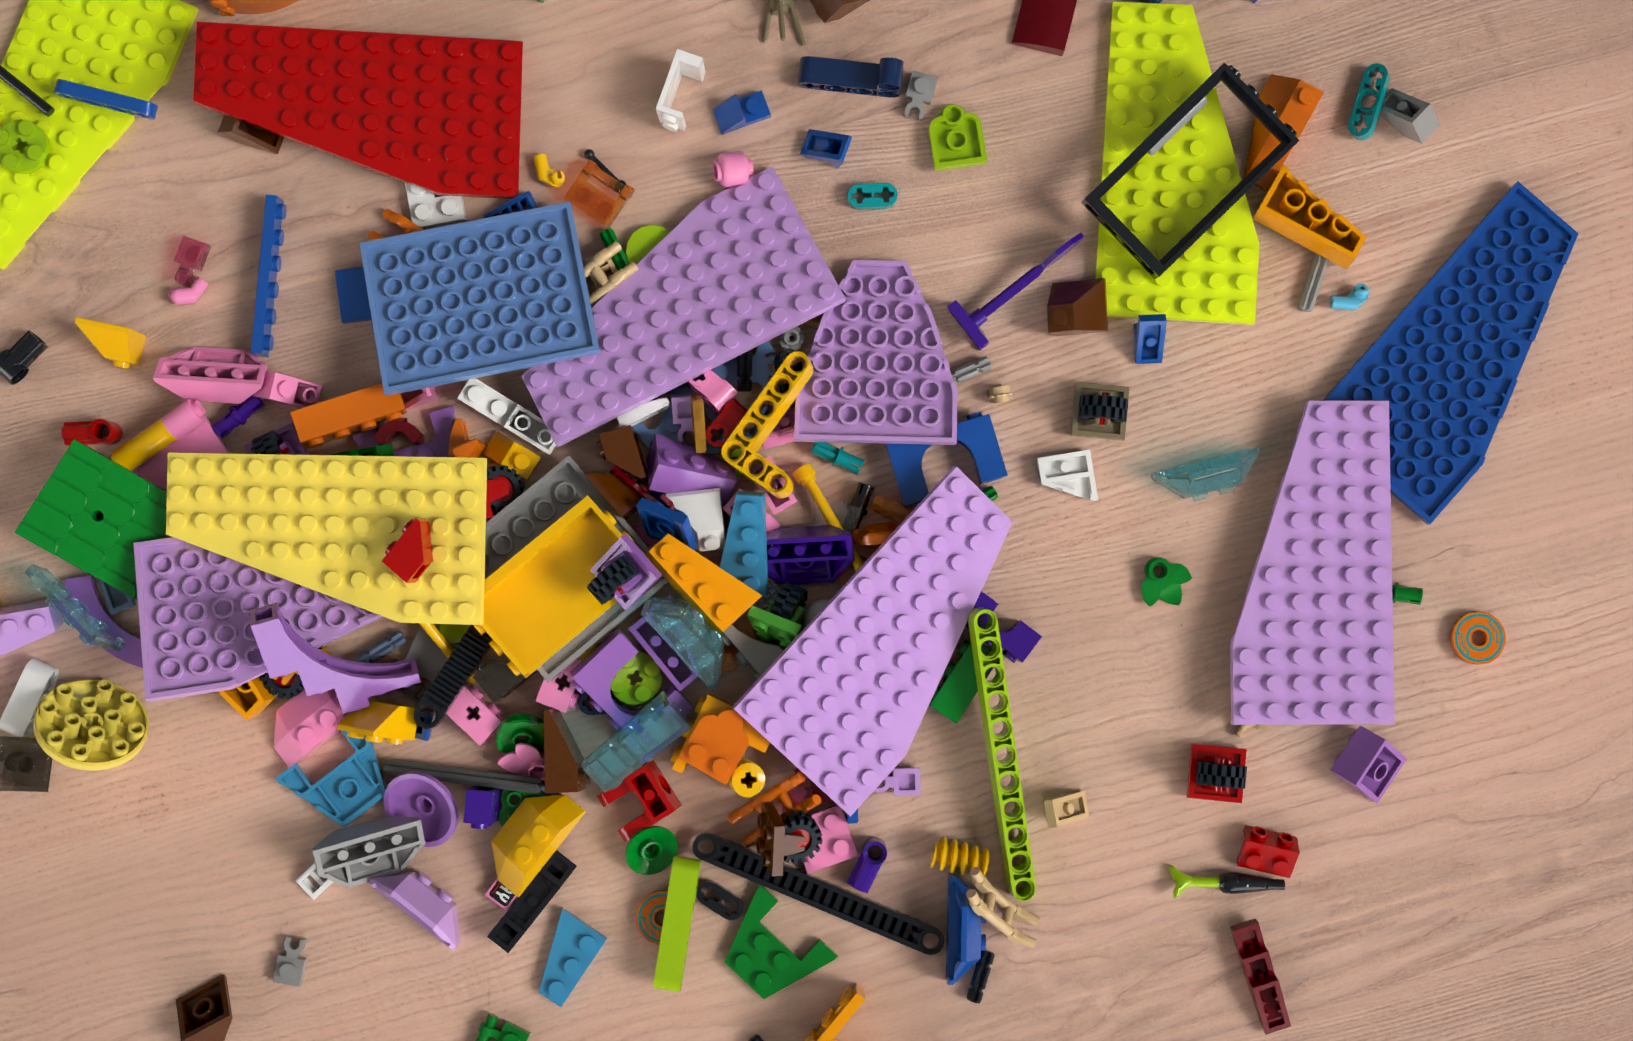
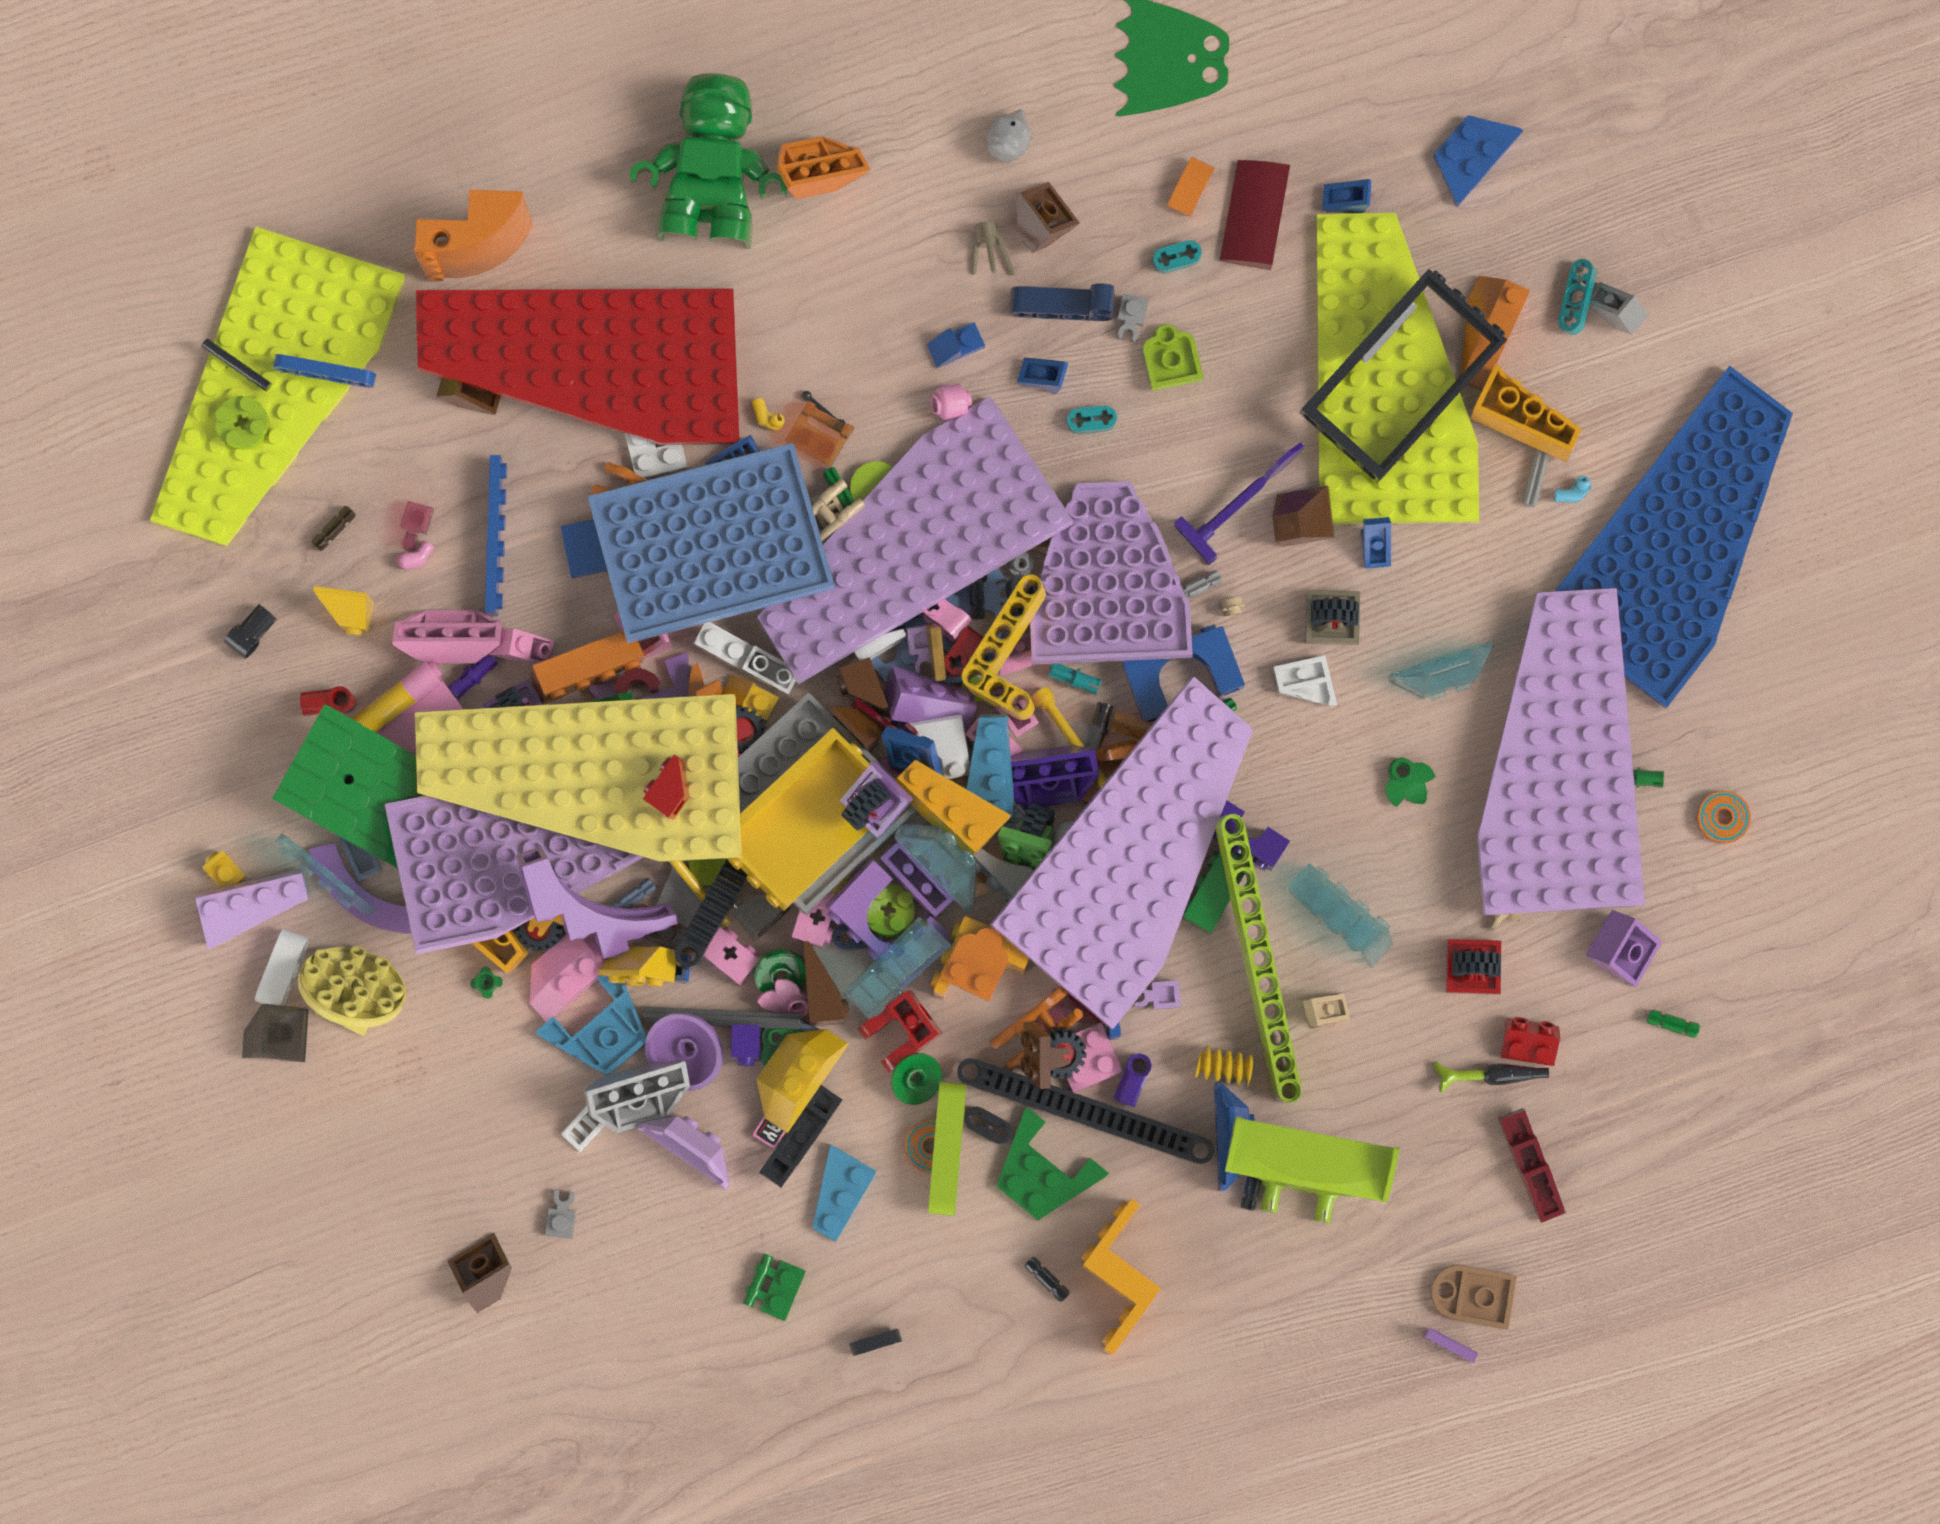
camera: 10 degrees left, 5 degrees down
(109, 258) = (333, 528): none -> dark brown axle
(224, 724) = (486, 990): none -> green plate
(686, 65) = (901, 303): white panel -> none
(752, 784) = (1016, 999): yellow piece -> none
(970, 42) = (1174, 251): none -> teal beam
(1010, 910) = (1259, 1100): tan piece -> none
(1041, 974) = (1310, 1164): none -> lime piece
(1088, 712) = (1342, 913): none -> clear light blue wedge
(1412, 842) = (1673, 1023): none -> green axle

